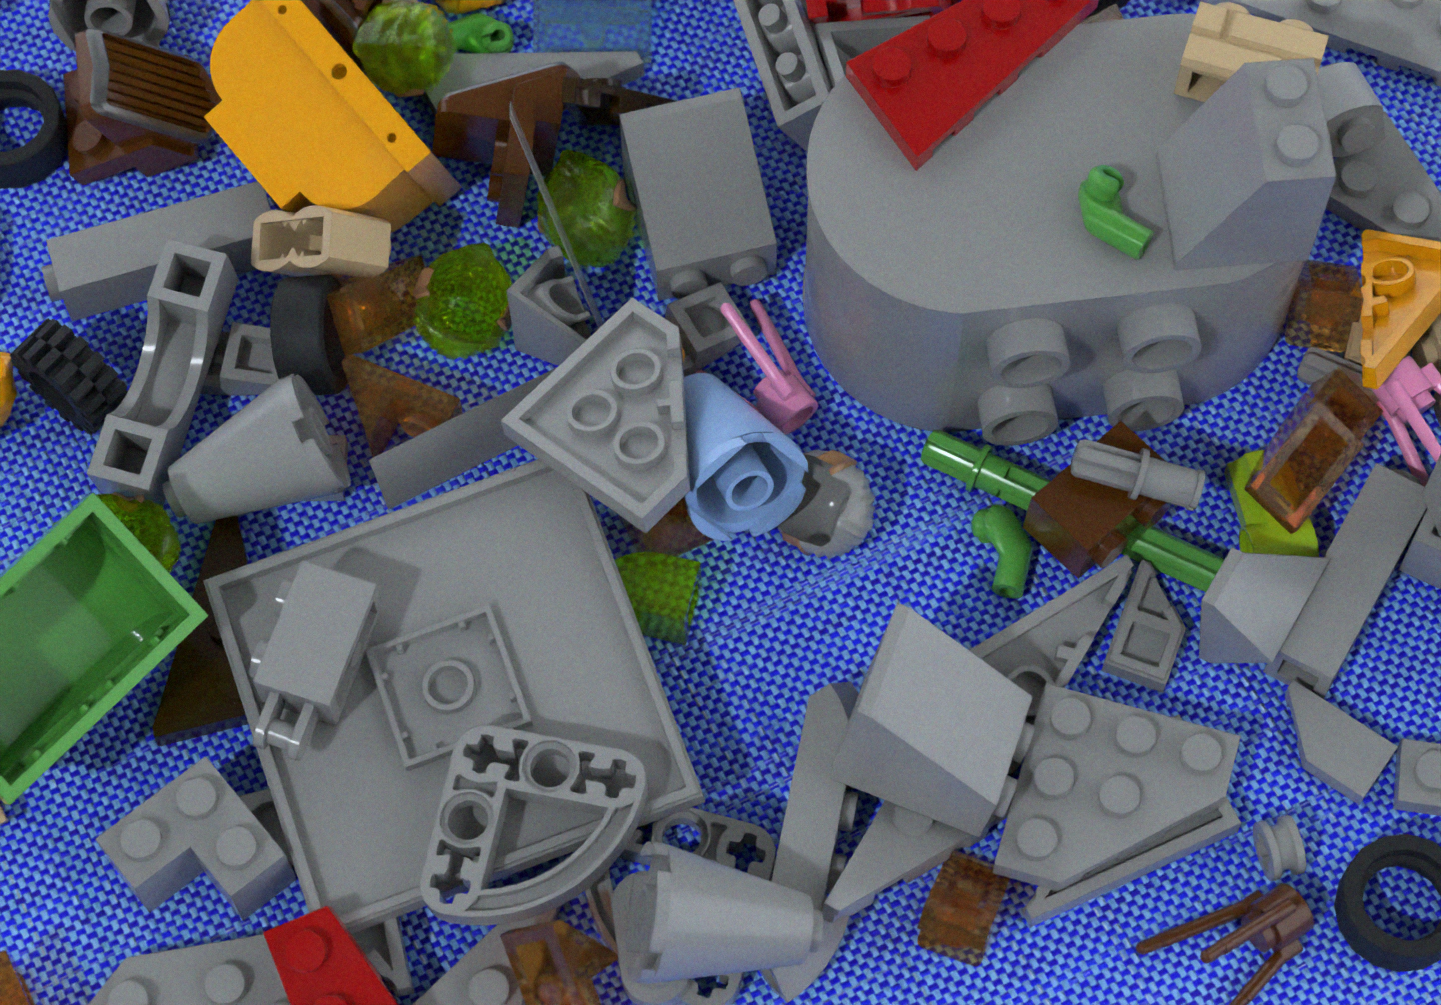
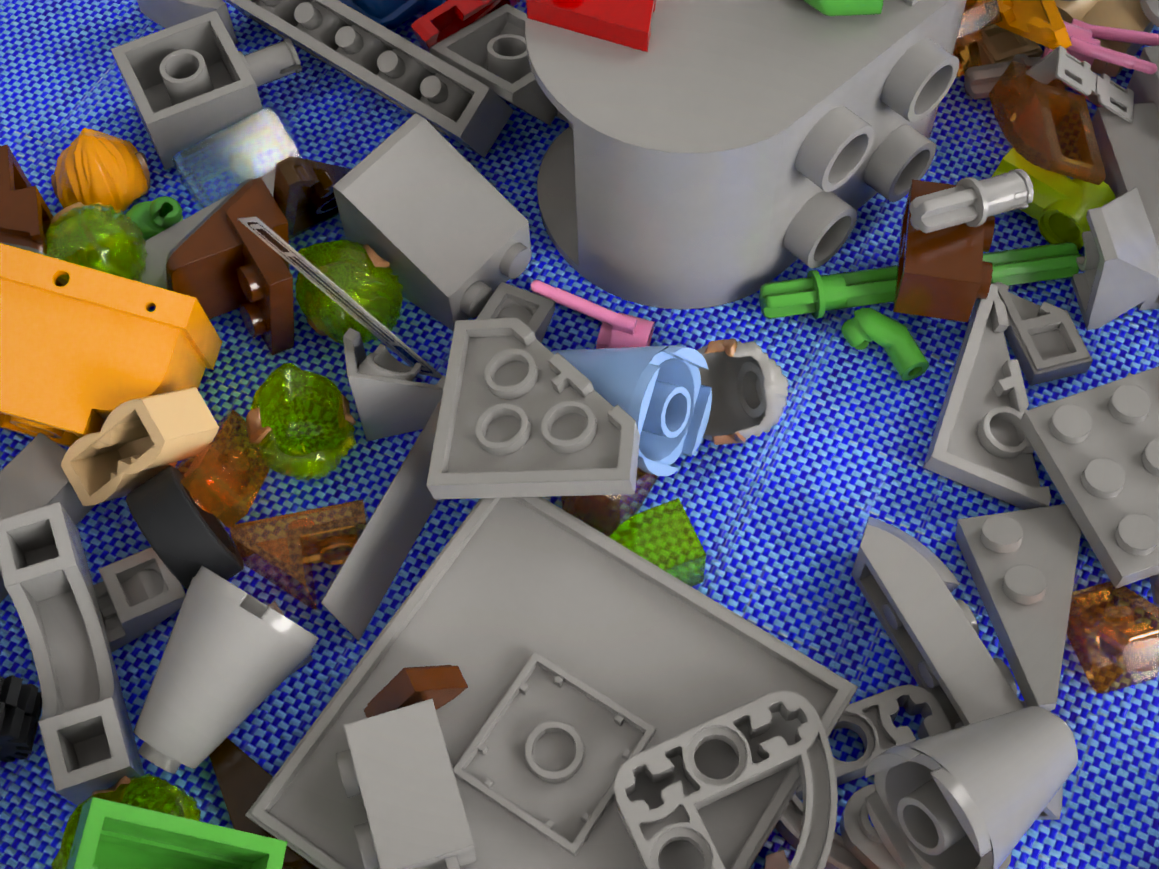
camera: 35 degrees left, 5 degrees down
(391, 575) = (416, 685): none -> reddish brown tile
(934, 728) = (987, 499): light grey slope -> none
(1373, 425) = (1079, 76): none -> light grey piece

